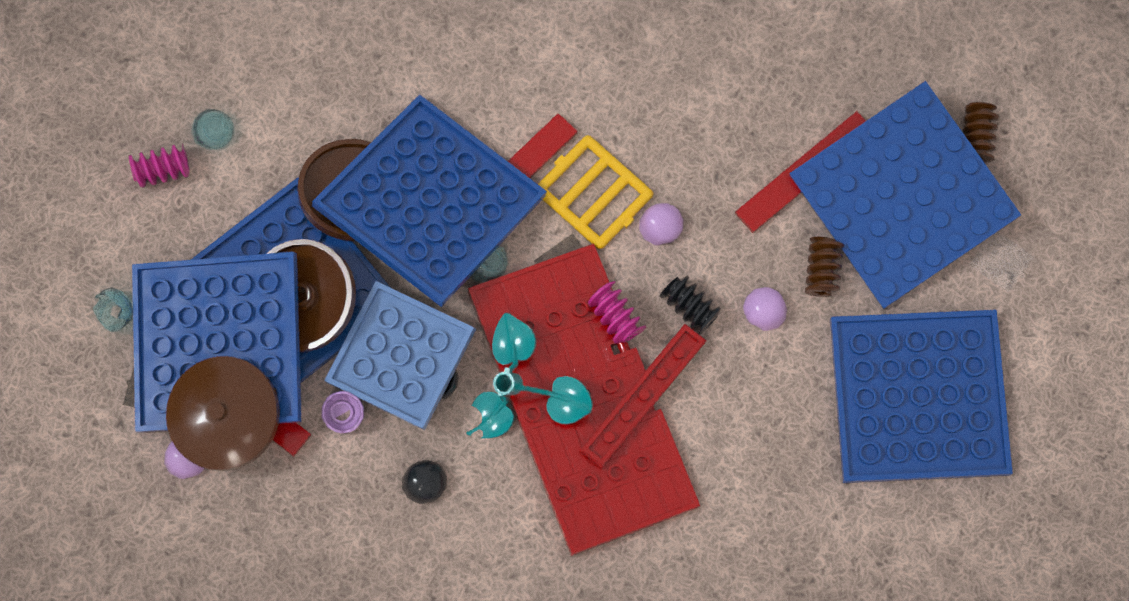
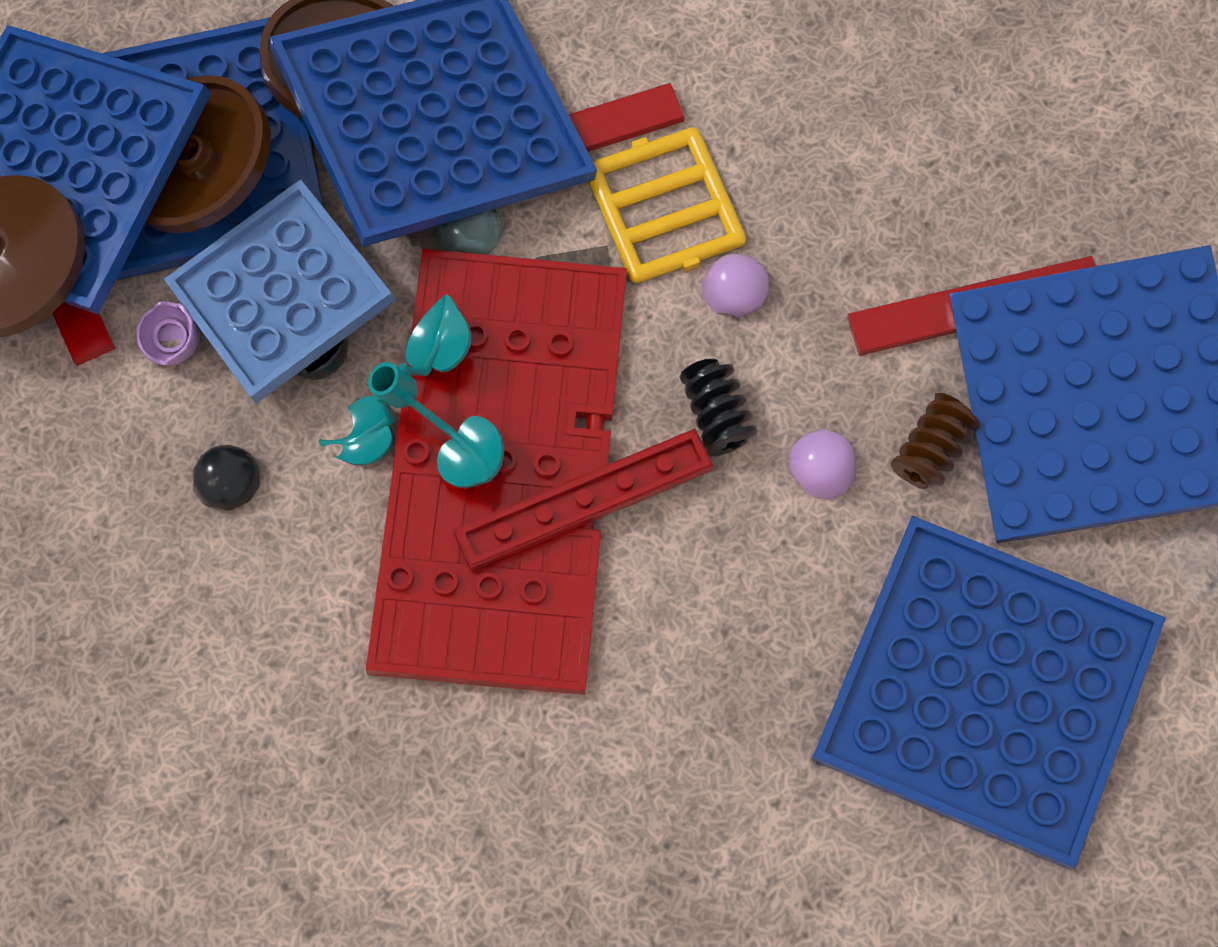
camera: 35 degrees right, 5 degrees down
(615, 314) = (599, 367): dark pink piece -> none

